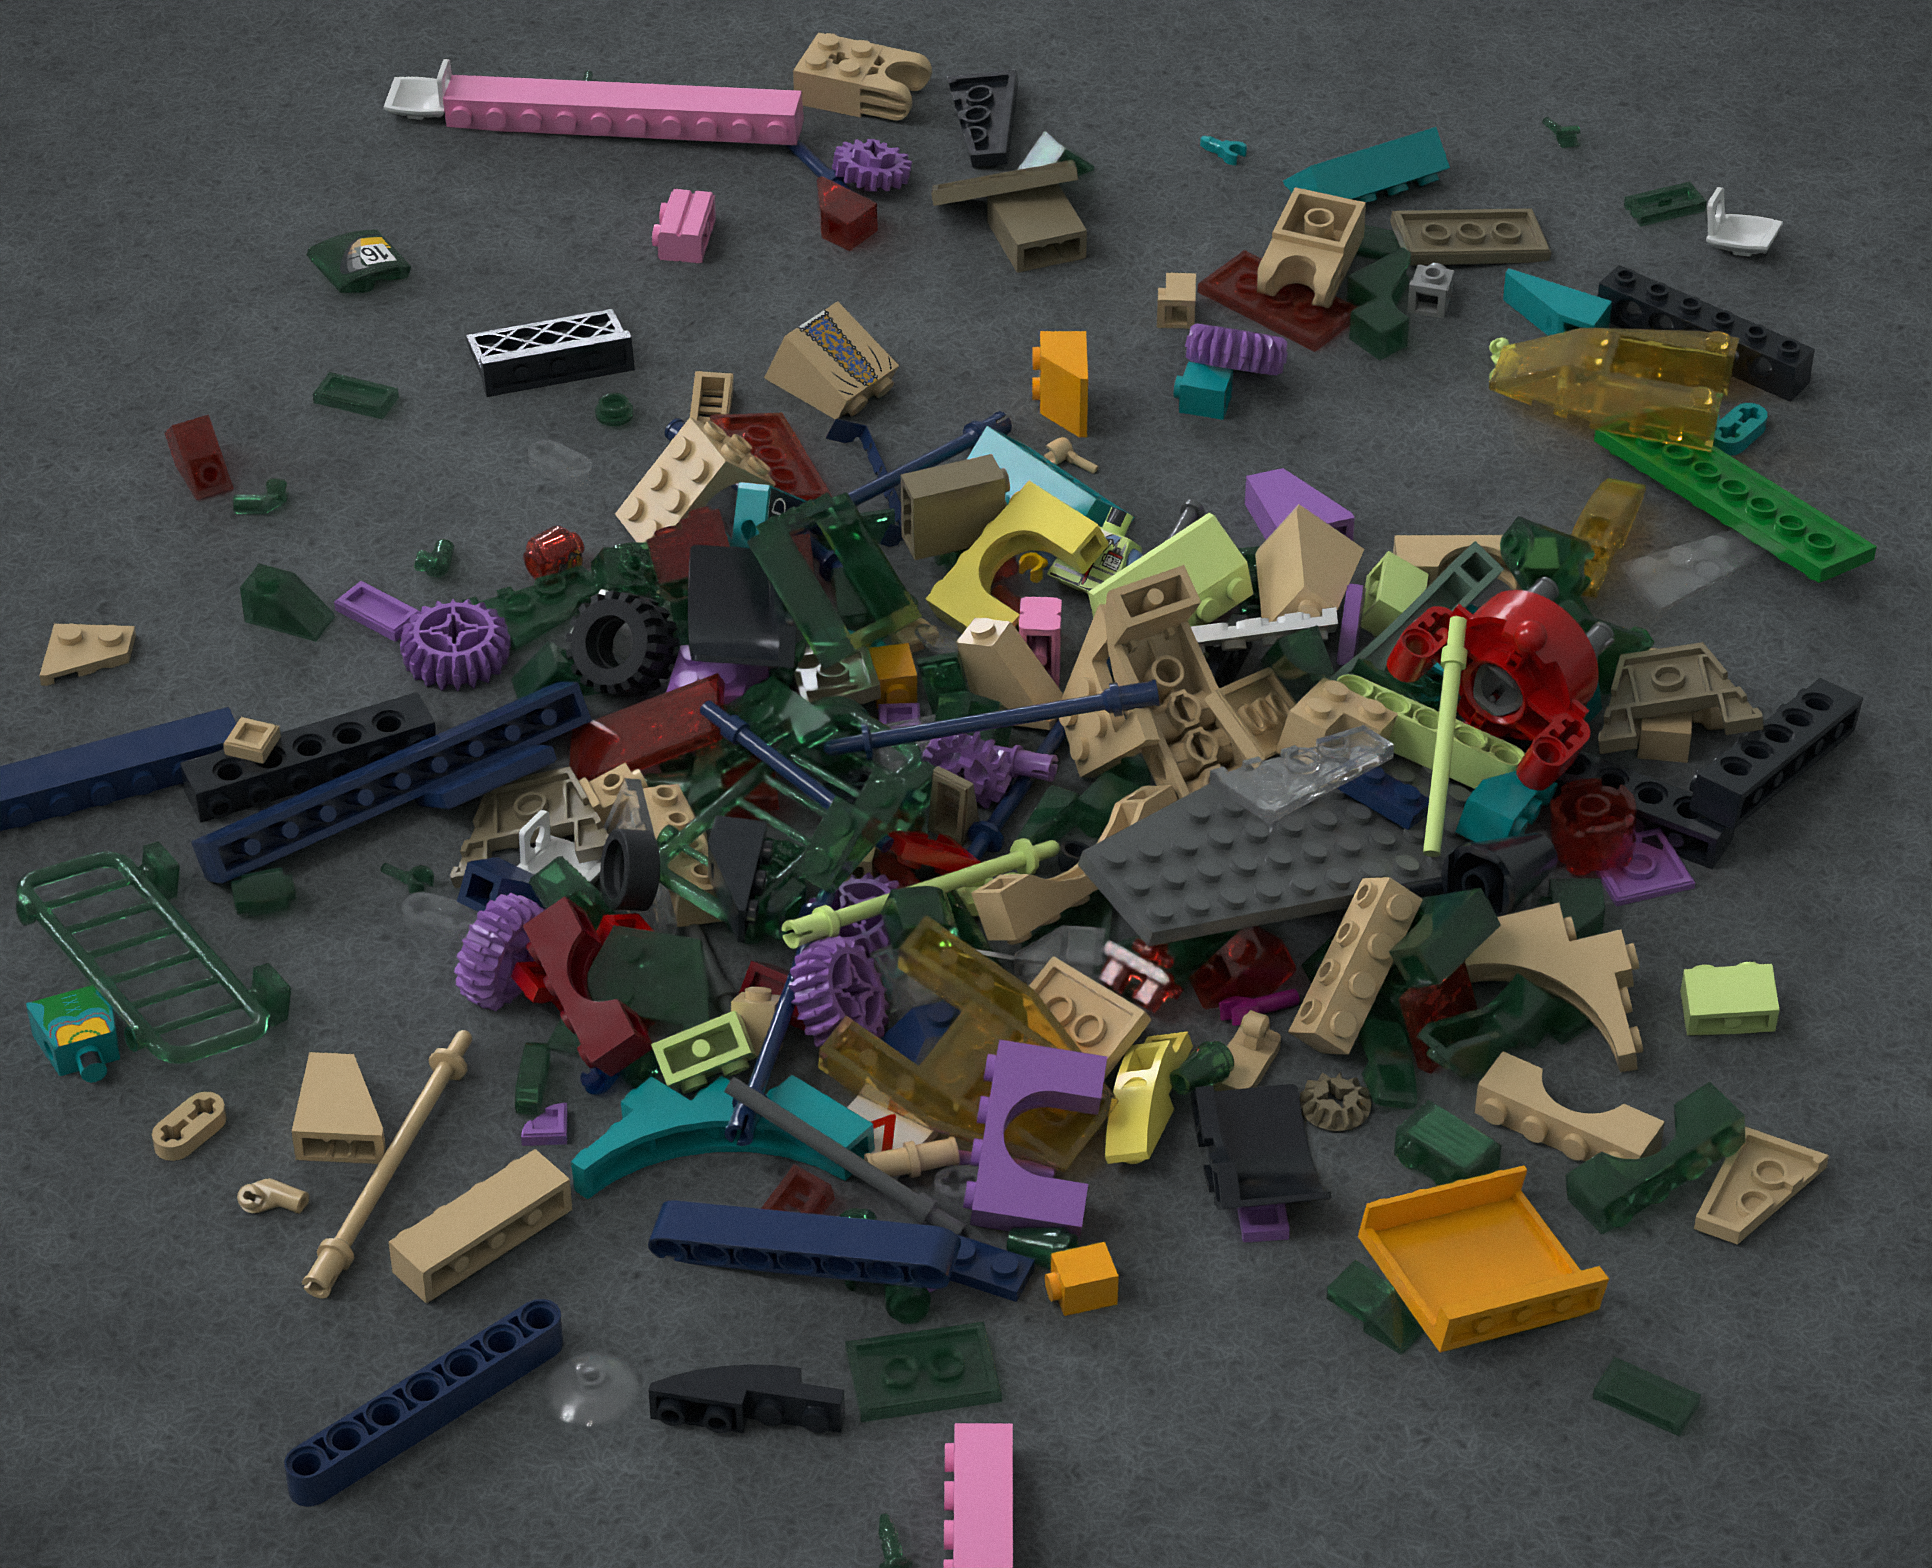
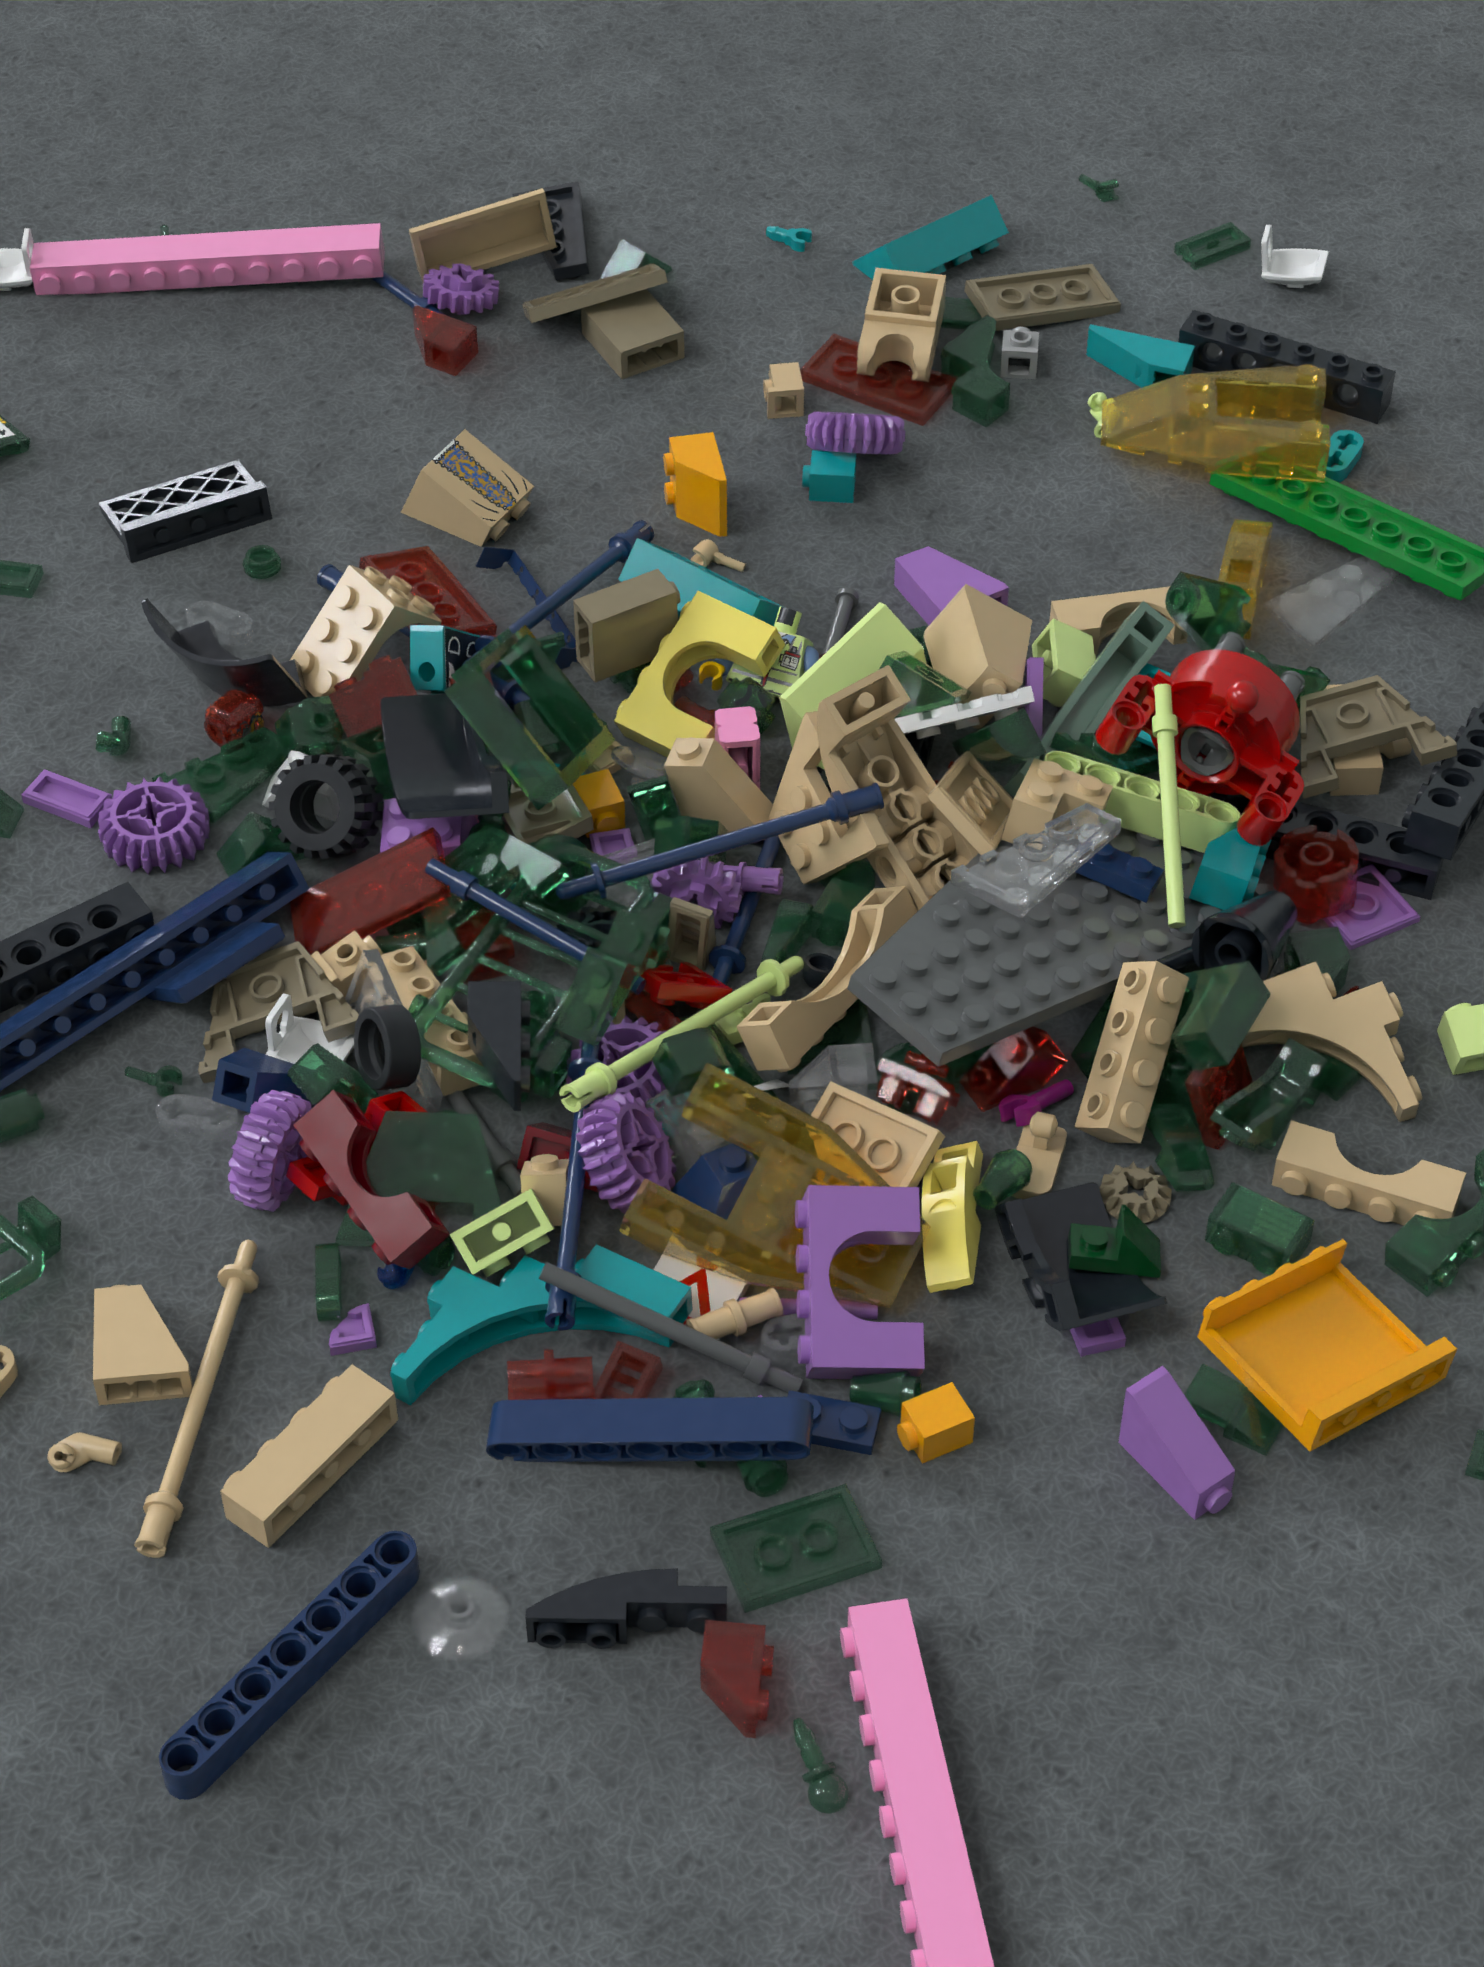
camera: 10 degrees left, 5 degrees up
(539, 494) = (204, 655): none -> black panel
(685, 226) = (292, 369): bright pink brick -> none
(711, 384) = (354, 525): tan slope -> none
(722, 1186) = (550, 1378): none -> clear red hips
(836, 1464) = (733, 1670): none -> clear red slope
(859, 77) = (419, 196): tan brick -> none
(906, 113) = (485, 235): none -> tan slope
(1073, 597) = (749, 693): none -> clear green head
(1228, 596) = (923, 684): none -> clear green slope
(1307, 1326) = (1175, 1445): none -> medium lavender slope
(1309, 1149) = (1121, 1250): none -> dark green slope

